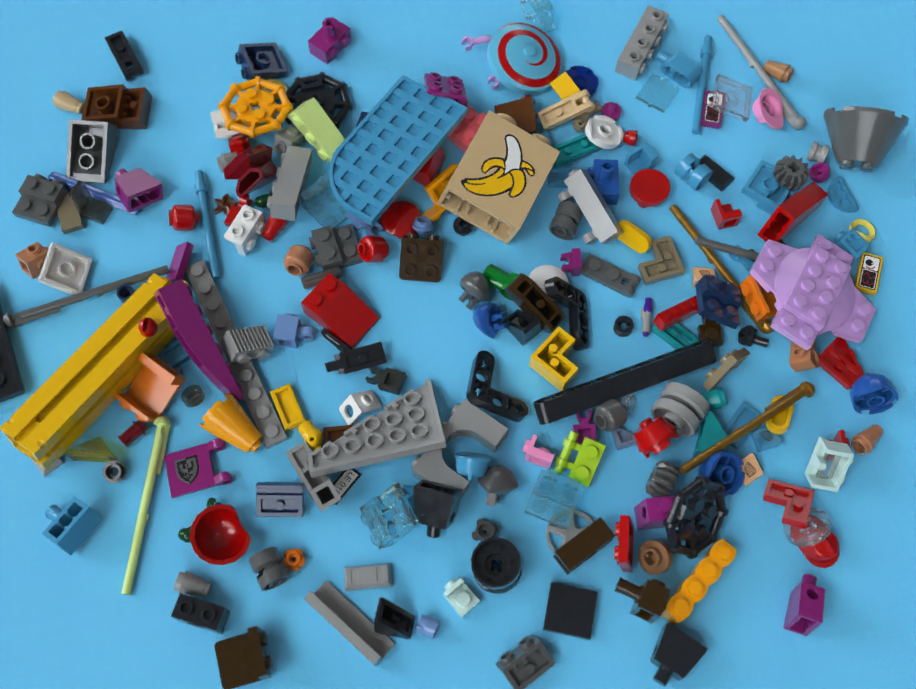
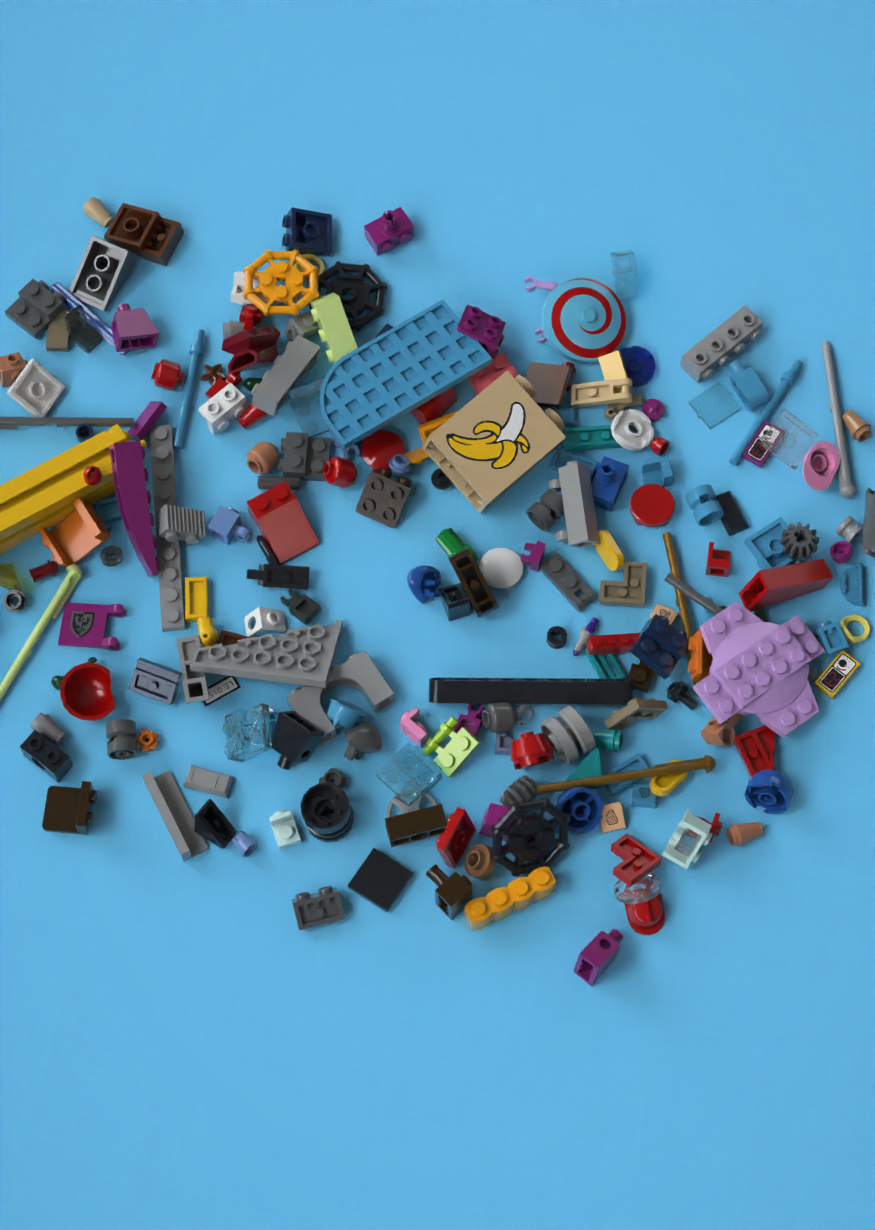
camera: 25 degrees right, 0 degrees up
(124, 55) = (171, 176): black plate -> none
(232, 425) = (137, 596): light orange cone -> none
(475, 288) = (424, 547): dark grey piece -> none
(516, 408) = (389, 654): black beam -> none
(551, 359) = (467, 640): yellow brick -> none
(578, 310) = (518, 600): black beam -> none
(675, 654) = (457, 952): black torso -> none

